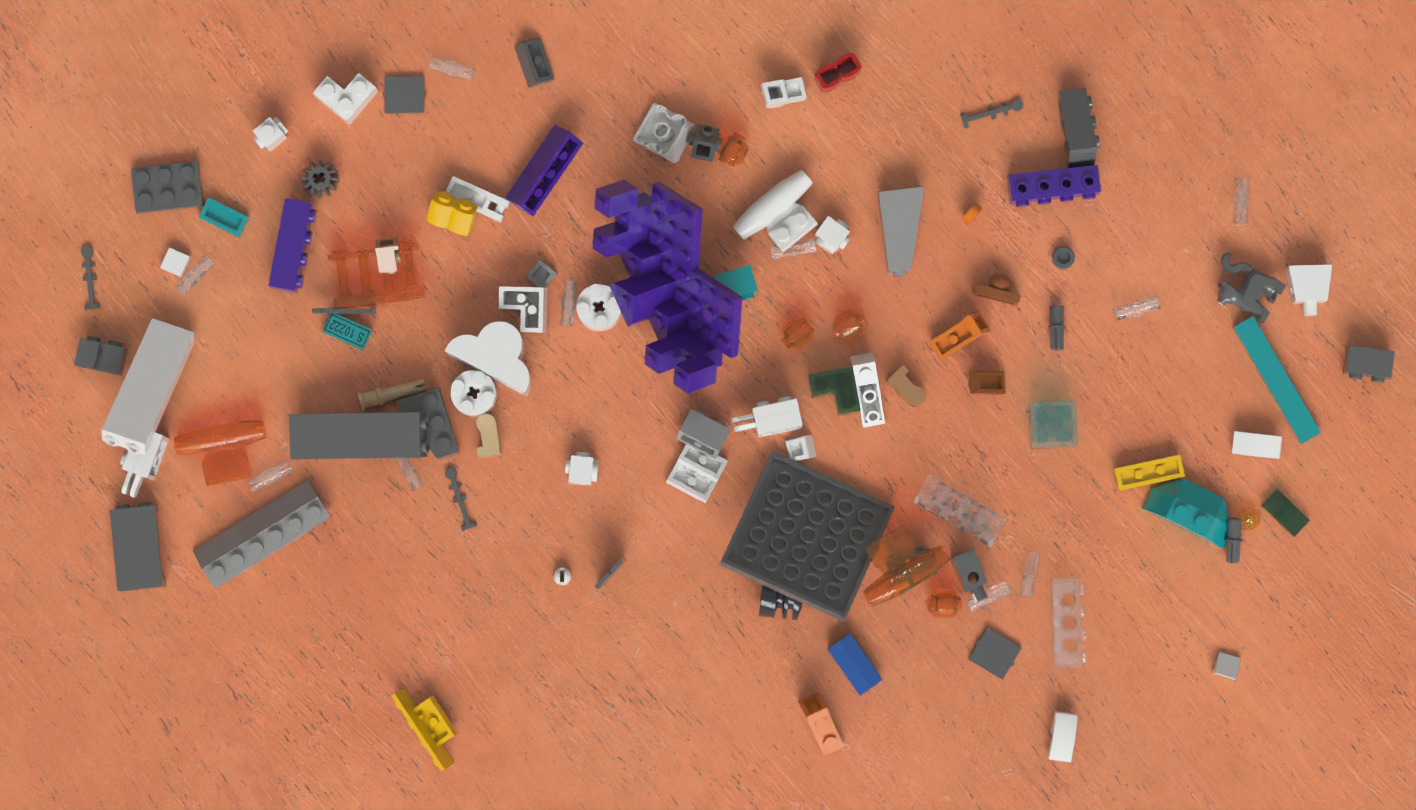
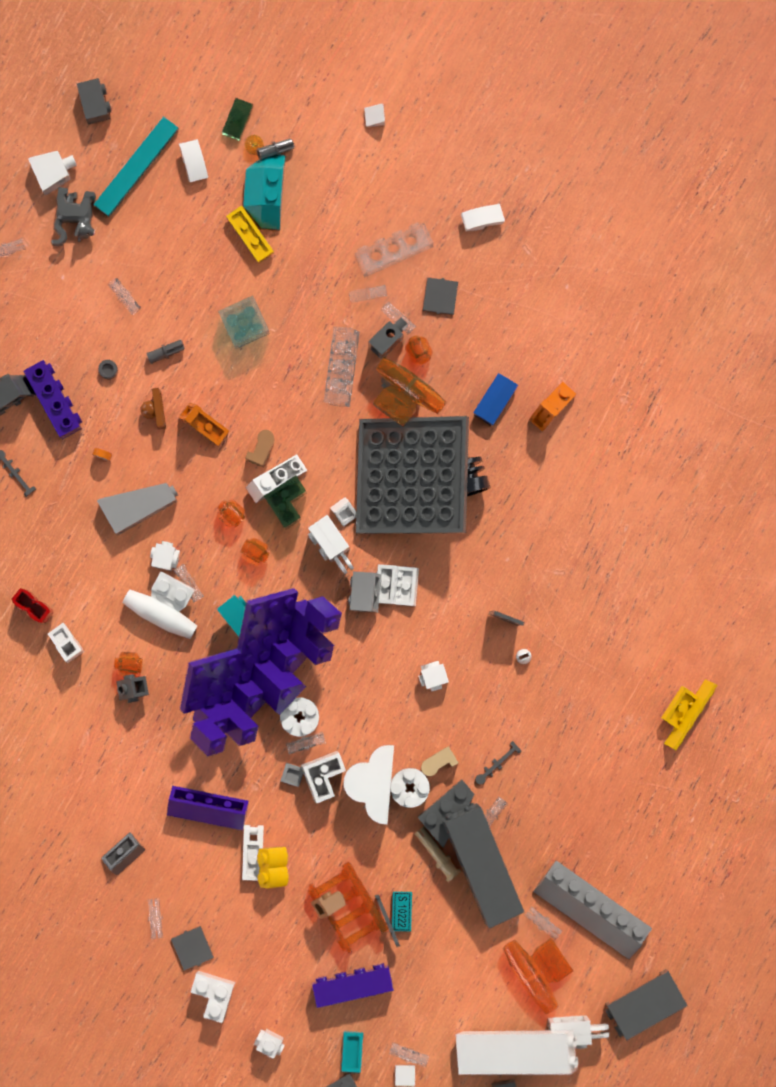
camera: 115 degrees left, 0 degrees up
(319, 171) = (283, 990): dark grey gear -> none
(664, 133) = (137, 724): white slope -> none
(986, 382) = (232, 387): dark orange tile -> none

